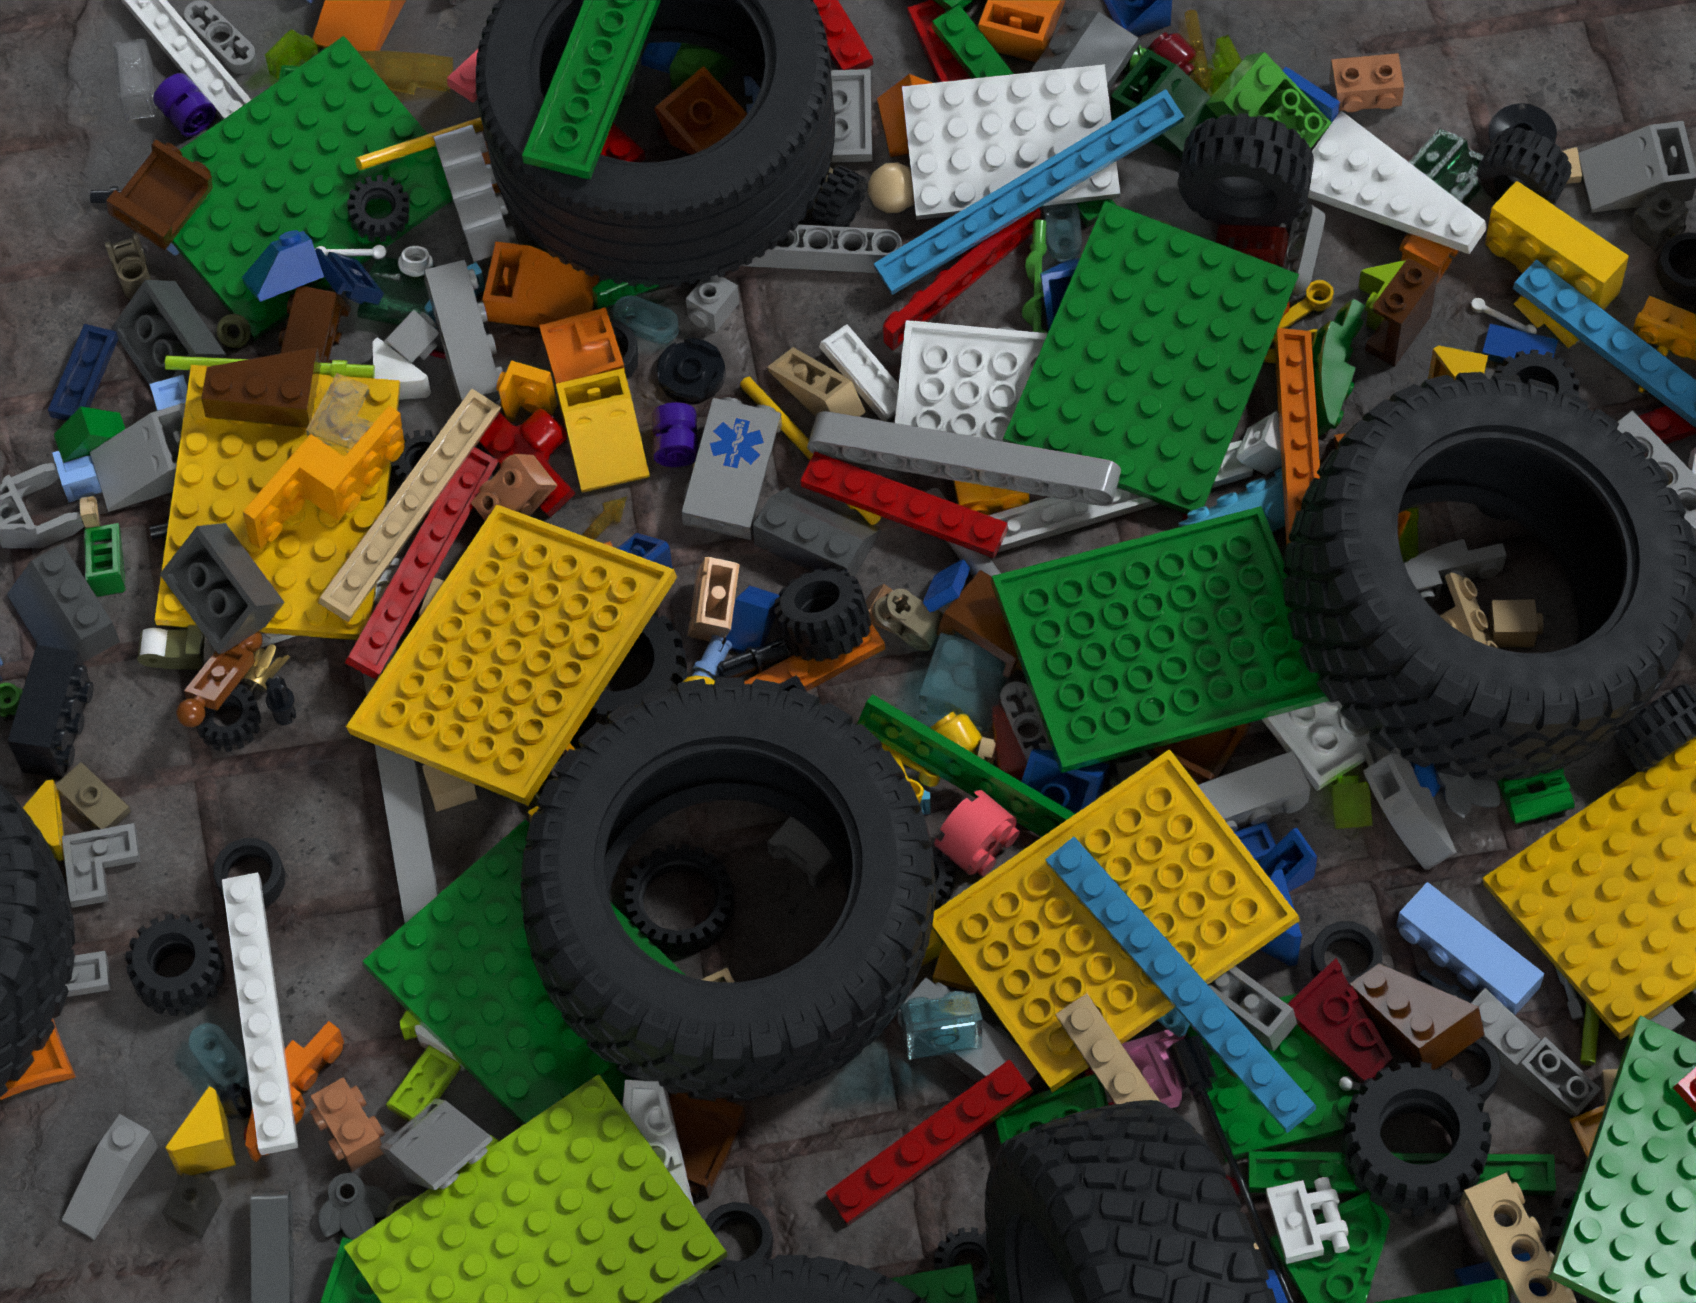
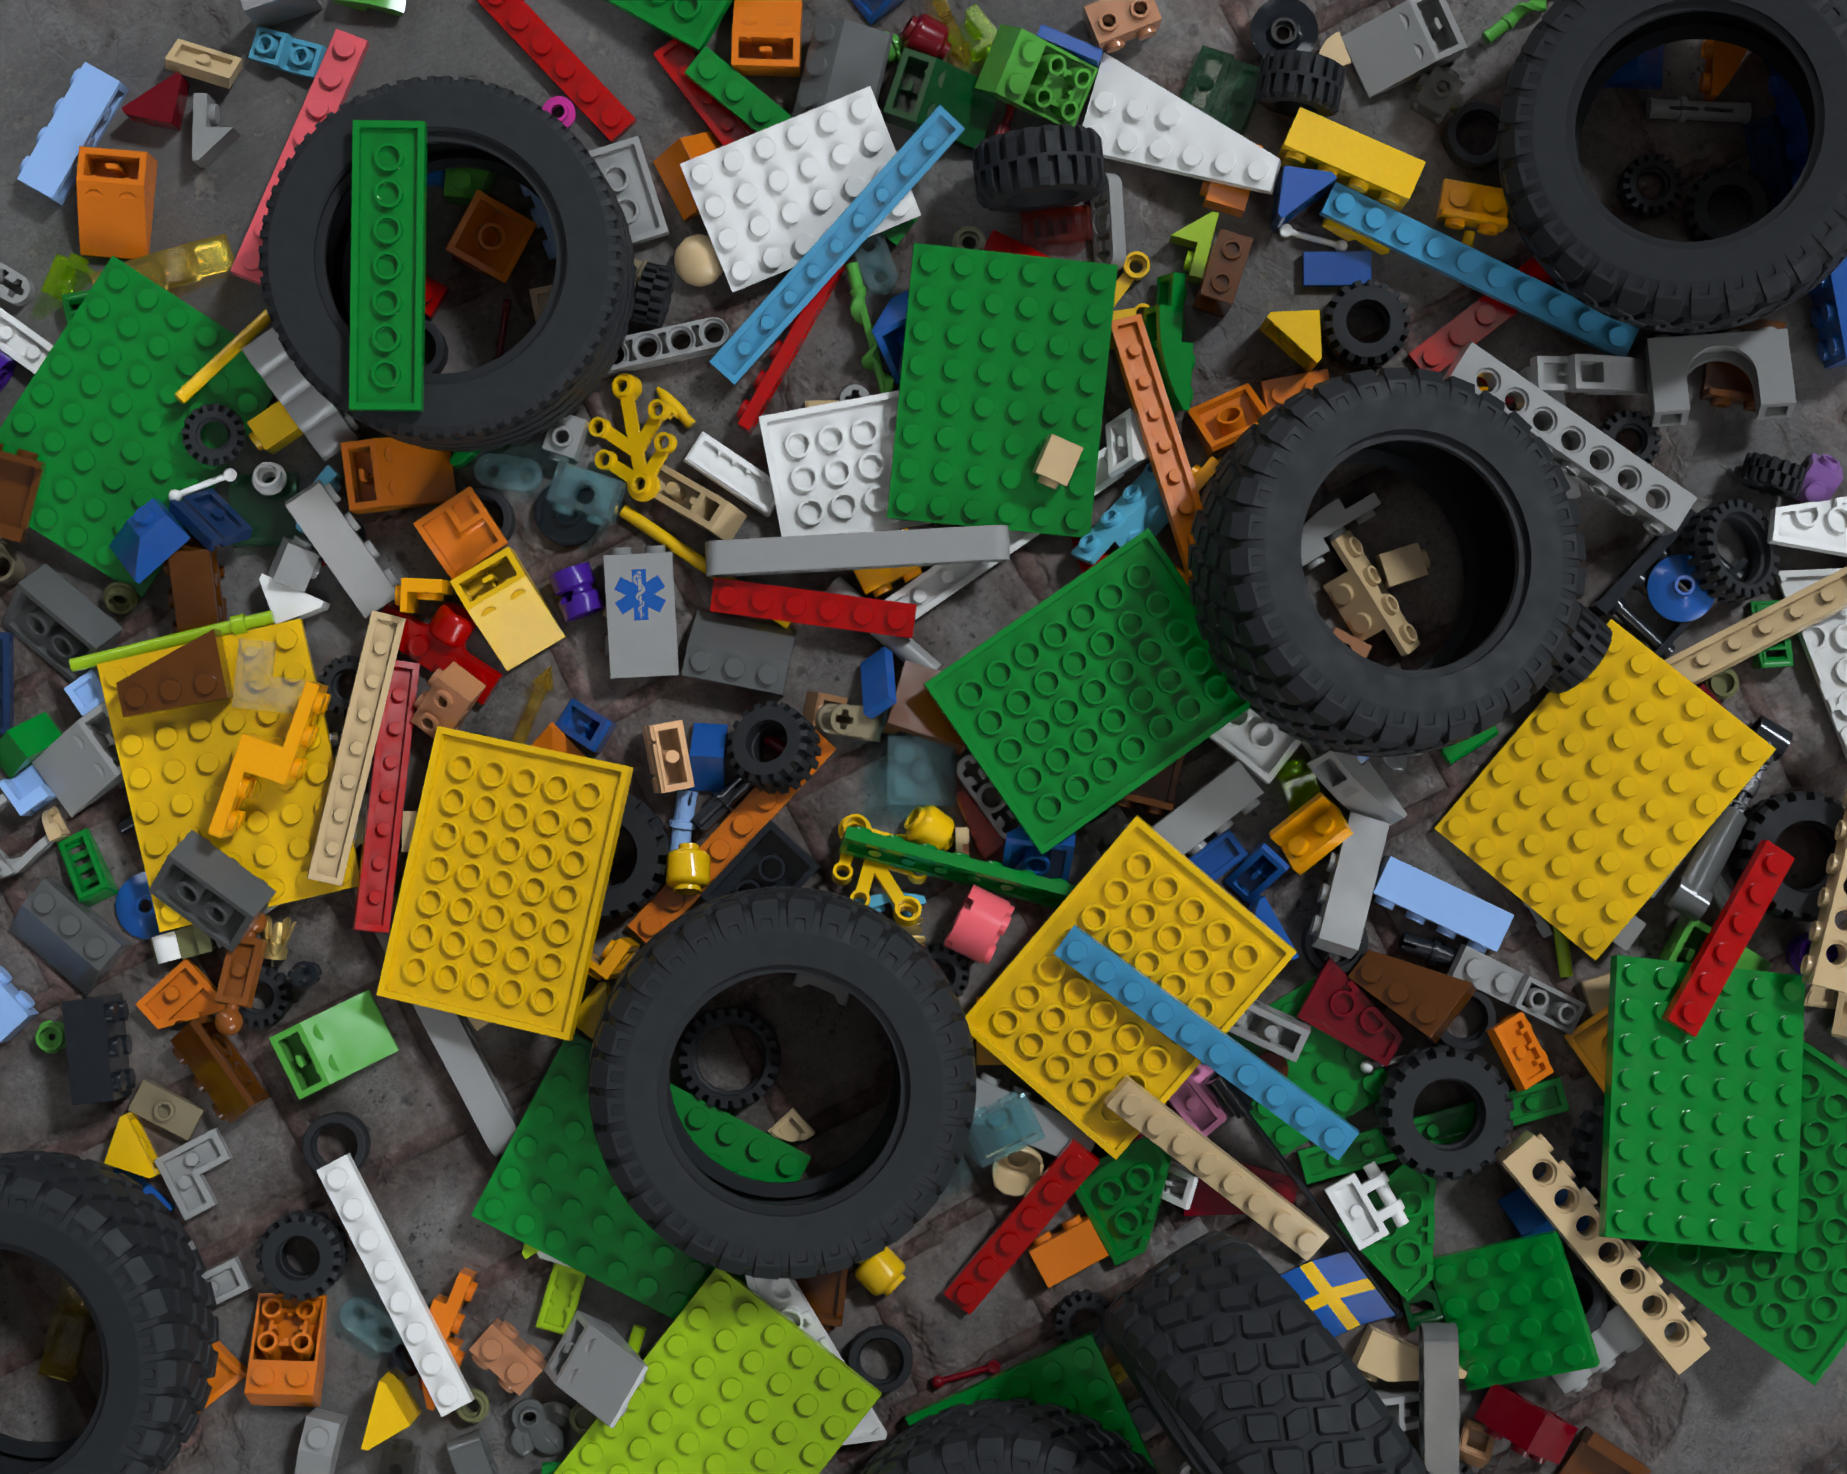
camera: 20 degrees left, 25 degrees up
(121, 1060) = (287, 1352): none -> orange slope
(130, 612) = (129, 909): none -> blue dish
(146, 696) = (180, 997): none -> orange wing
(159, 767) = (218, 1069): none -> reddish brown slope
(282, 777) = (334, 1044): none -> bright green slope
(287, 1159) = (470, 1416): none -> olive plate
(437, 225) = (273, 429): none -> yellow brick
(707, 333) = (571, 479): none -> clear light blue brick
(766, 1147) = (881, 1273): none -> yellow head
(775, 356) = (636, 441): none -> yellow plant
(826, 308) = (677, 409): none -> yellow helmet
(941, 1081) = (1017, 1171): none -> tan hair
(960, 1183) = (1067, 1250): none -> orange piece
(1187, 423) = (1056, 461): none -> tan brick
(1348, 838) = (1311, 832): none -> light orange bracket
(1375, 897) = (1349, 887): none -> light grey brick
(1497, 264) = (1296, 191): none -> blue slope
(1516, 1110) = (1519, 1050): none -> orange bracket

